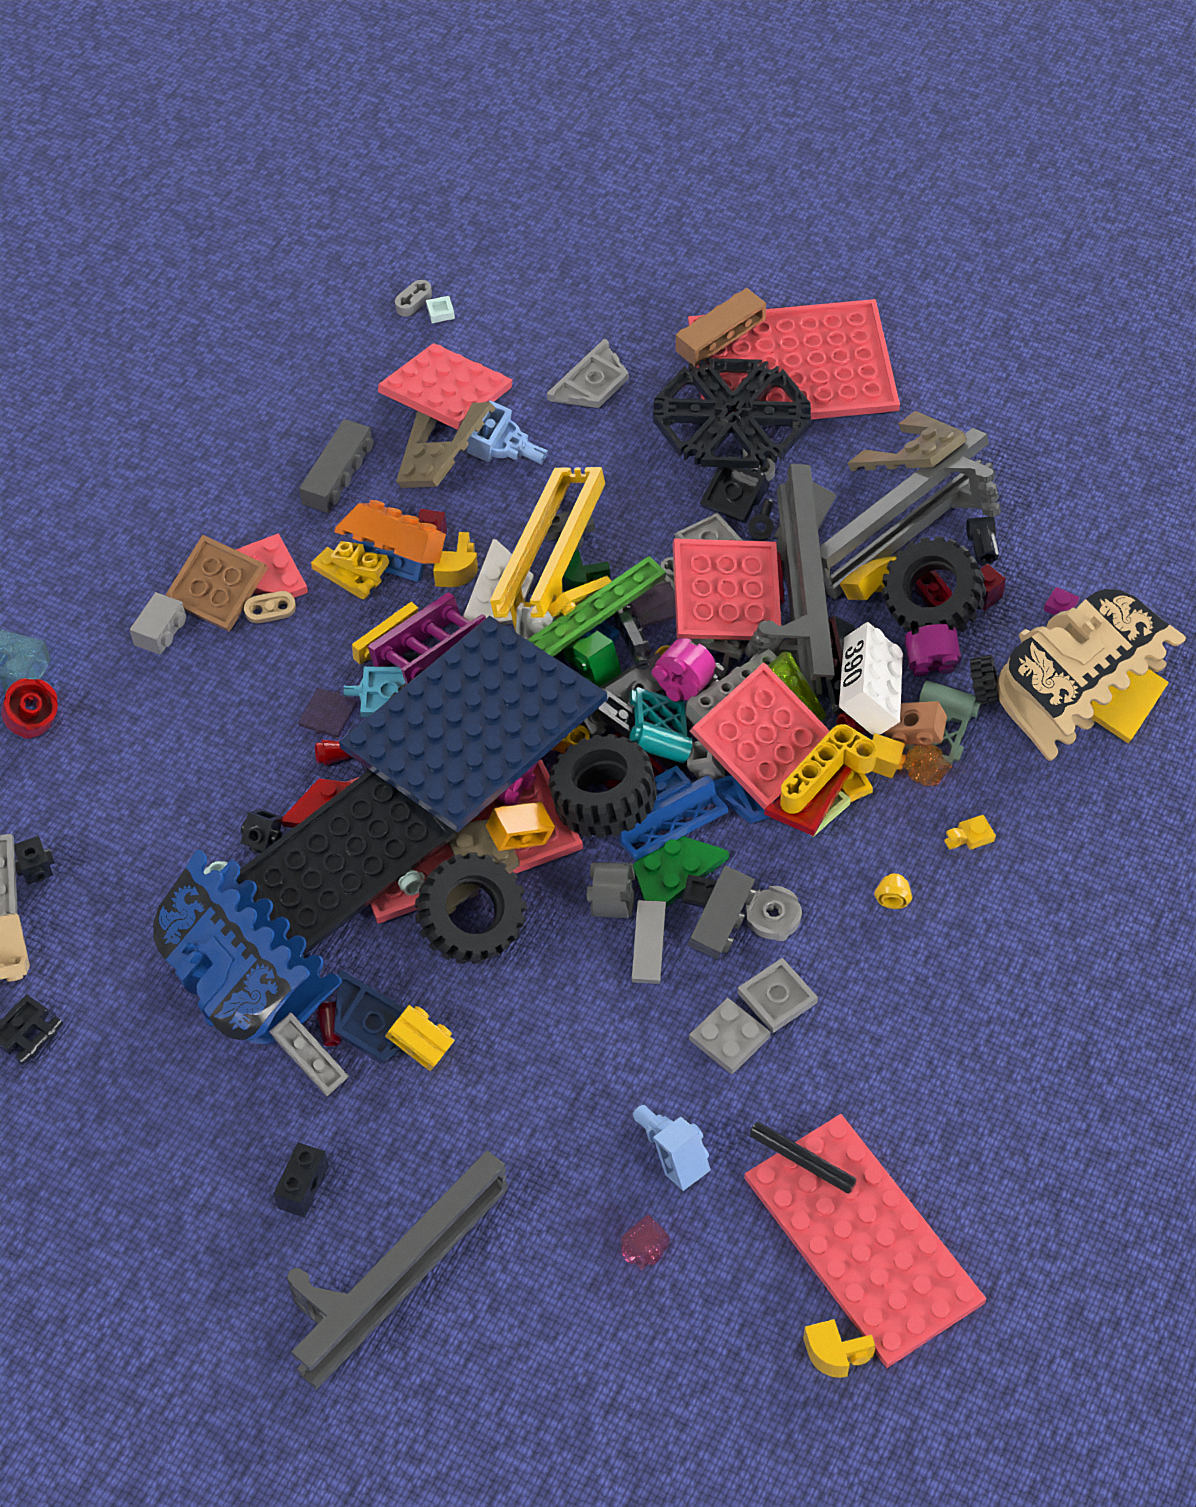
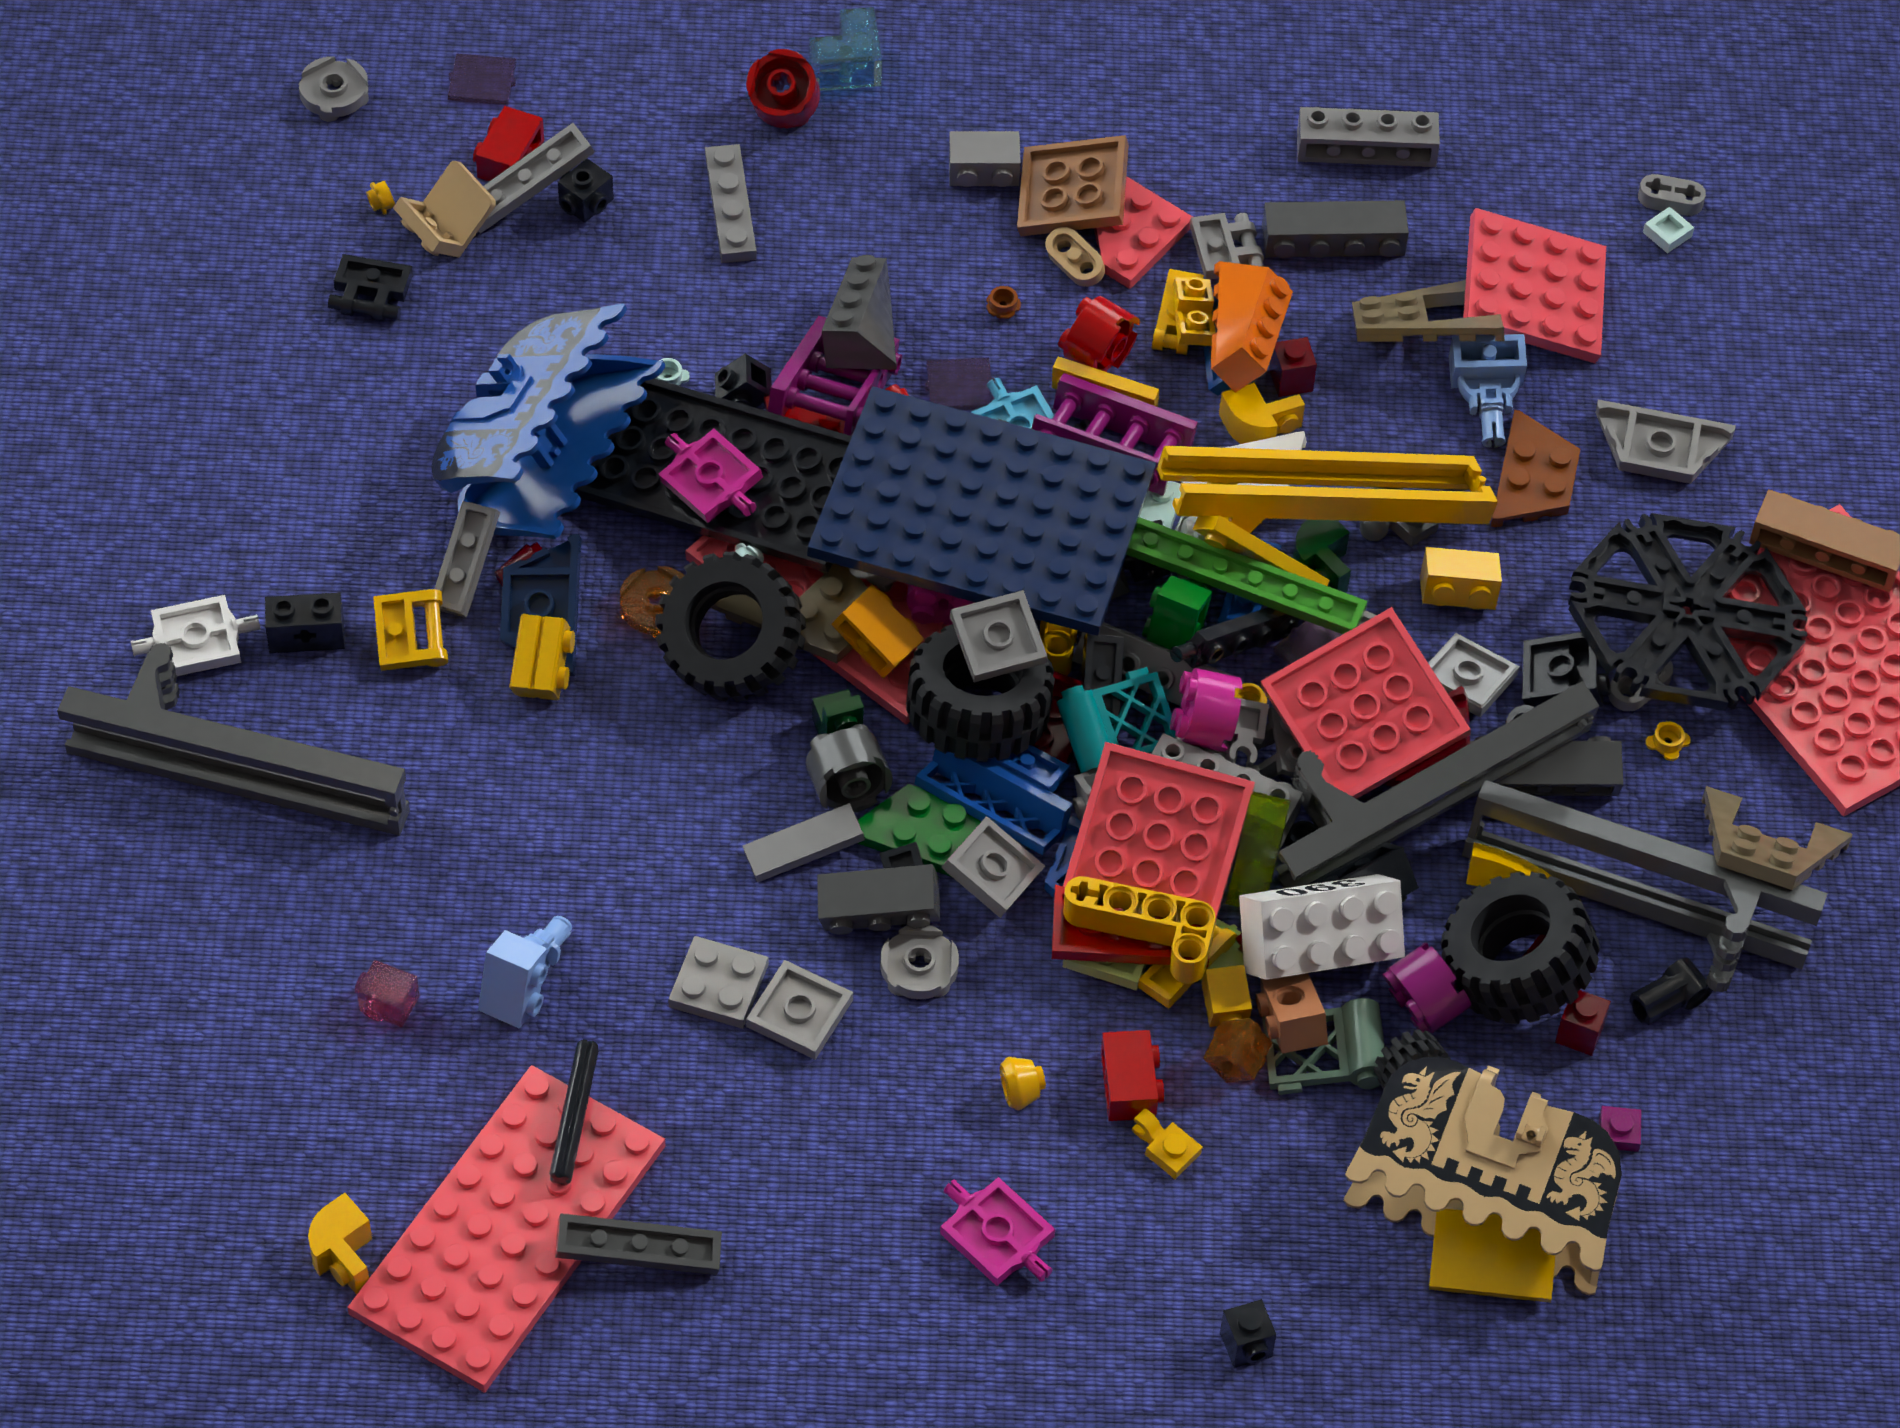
camera: 60 degrees right, 0 degrees up
(94, 782) = (730, 203): none -> light grey plate
(263, 741) = (861, 319): none -> dark grey wedge
(266, 1258) = (199, 634): none -> white plate
(275, 420) = (1368, 136): none -> light grey brick
(279, 656) = (1003, 302): none -> dark orange plate
(284, 793) = (798, 376): none -> magenta fence
(309, 531) = (1215, 243): none -> light grey plate
(340, 871) = (710, 475): none -> dark pink plate
(341, 1121) = (397, 630): none -> yellow plate
(349, 615) = (1100, 334): none -> red brick
(404, 967) = (635, 595): none -> clear orange plate
(568, 883) = (837, 712): none -> dark green brick
(575, 445) = (1535, 473): none -> dark orange wing
(587, 748) = (998, 636): none -> light grey plate
(640, 512) = (1460, 578): none -> yellow brick
(727, 840) = (993, 866): none -> light grey plate
(807, 459) = (1672, 732): none -> yellow plate
(915, 831) = (1130, 1074): none -> red brick
(921, 1159) = (638, 1244): none -> dark grey plate
(996, 949) = (997, 1231): none -> dark pink plate
(1131, 843) = (1248, 1333): none -> black brick

